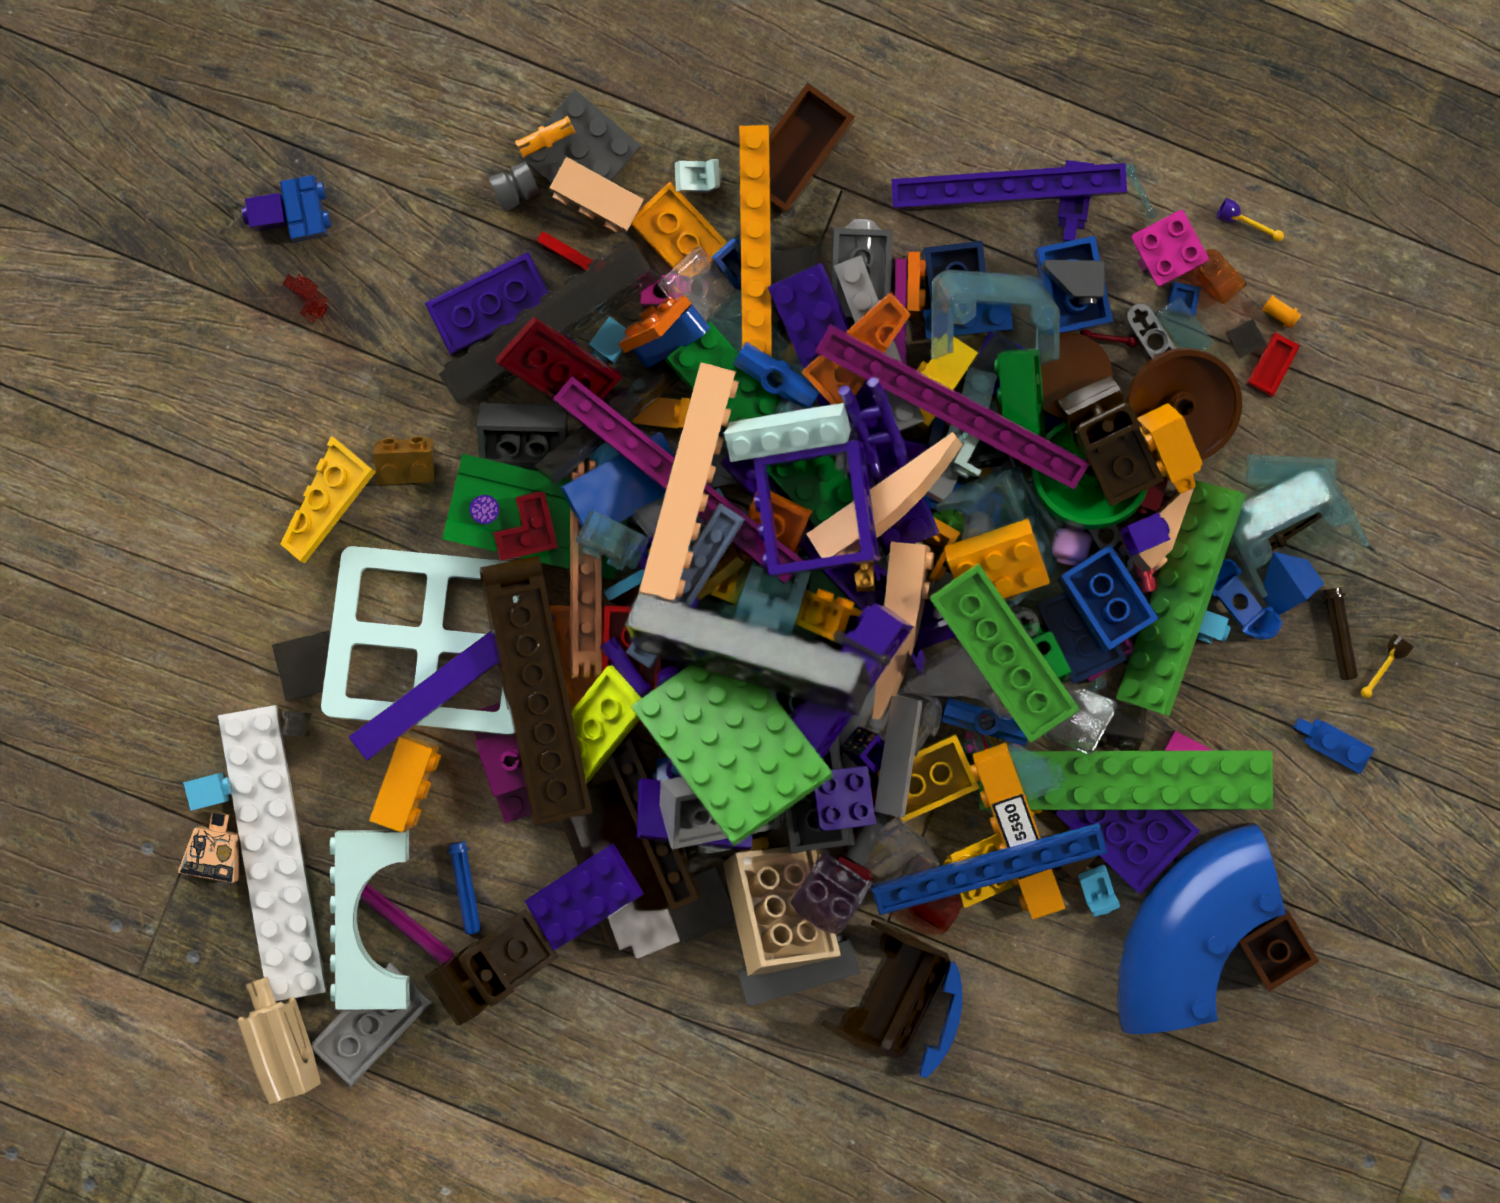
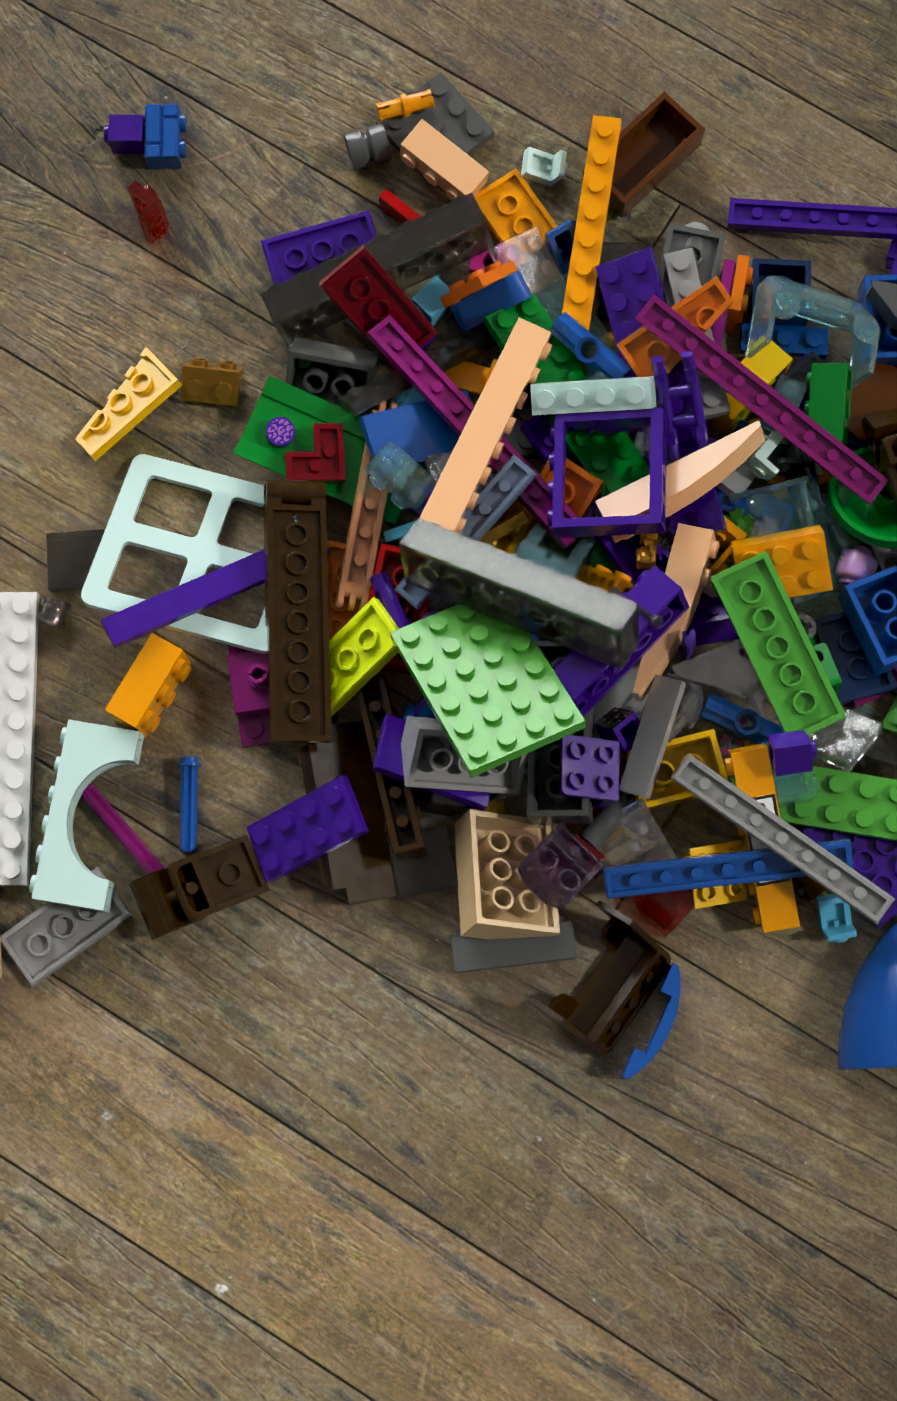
camera: 15 degrees right, 10 degrees down
(1032, 754) = (791, 752): none -> dark purple brick
(1035, 835) = (782, 839): none -> light grey tile

